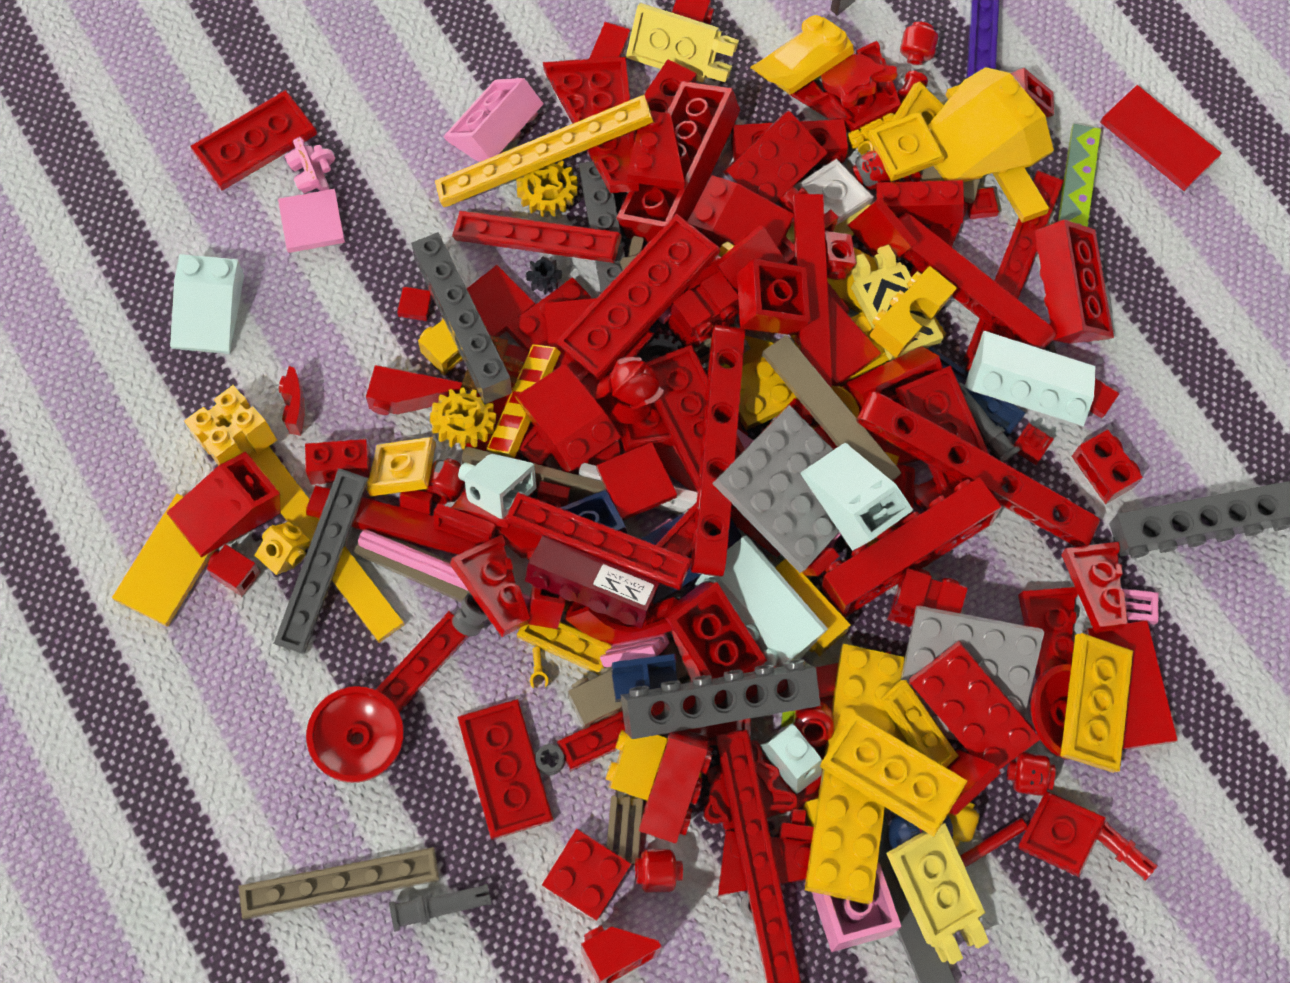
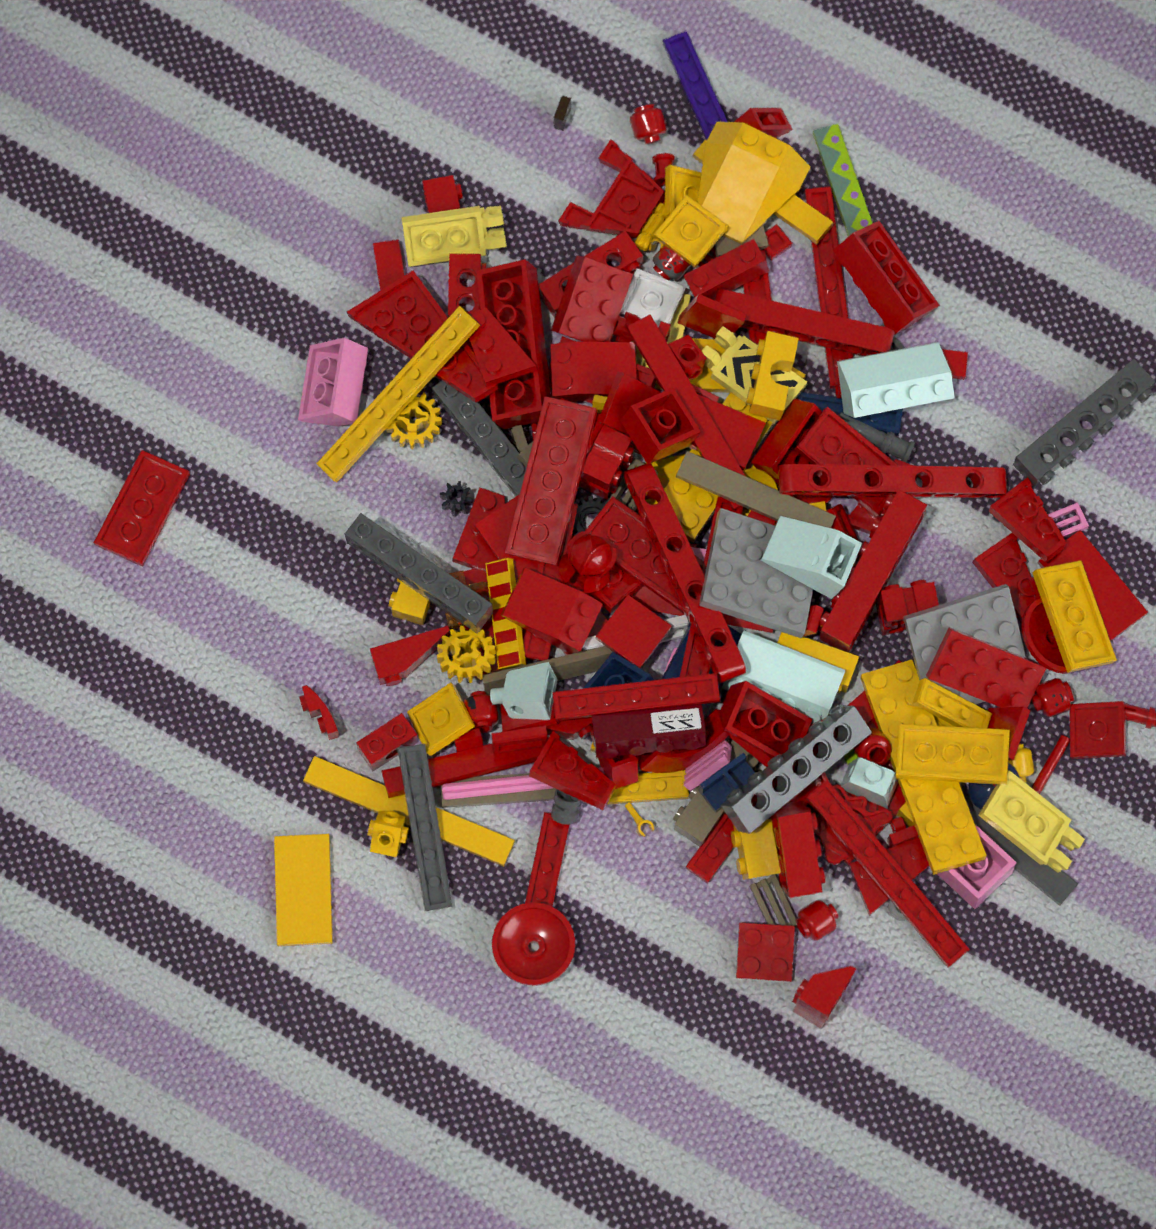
camera: 25 degrees left, 5 degrees up
(205, 303) = (197, 671): light aqua slope -> none
(226, 505) = (323, 824): red slope -> none
(230, 427) = (287, 763): yellow brick -> none
(232, 569) = (357, 872): red brick -> none
(311, 220) = (235, 553): bright pink tile -> none
(314, 161) = (214, 514): bright pink hips -> none
(338, 883) = (585, 1059): dark tan tile -> none
(414, 303) = (364, 578): red tile -> none
(423, 909) = (660, 1042): dark grey pin -> none
(498, 300) = (432, 537): red tile -> none
(505, 769) = (658, 908): red tile -> none
(537, 236) = (433, 470): red tile -> none
(553, 494) = (572, 678): red tile -> none
(553, 750) = (685, 875): dark grey bush -> none
(806, 55) = (559, 188): yellow slope -> none
(856, 78) = (611, 187): red tile -> none
(1033, 443) = (921, 430): red tile -> none
(1100, 469) = (984, 425): red brick -> none
(1160, 137) = (890, 104): red tile -> none

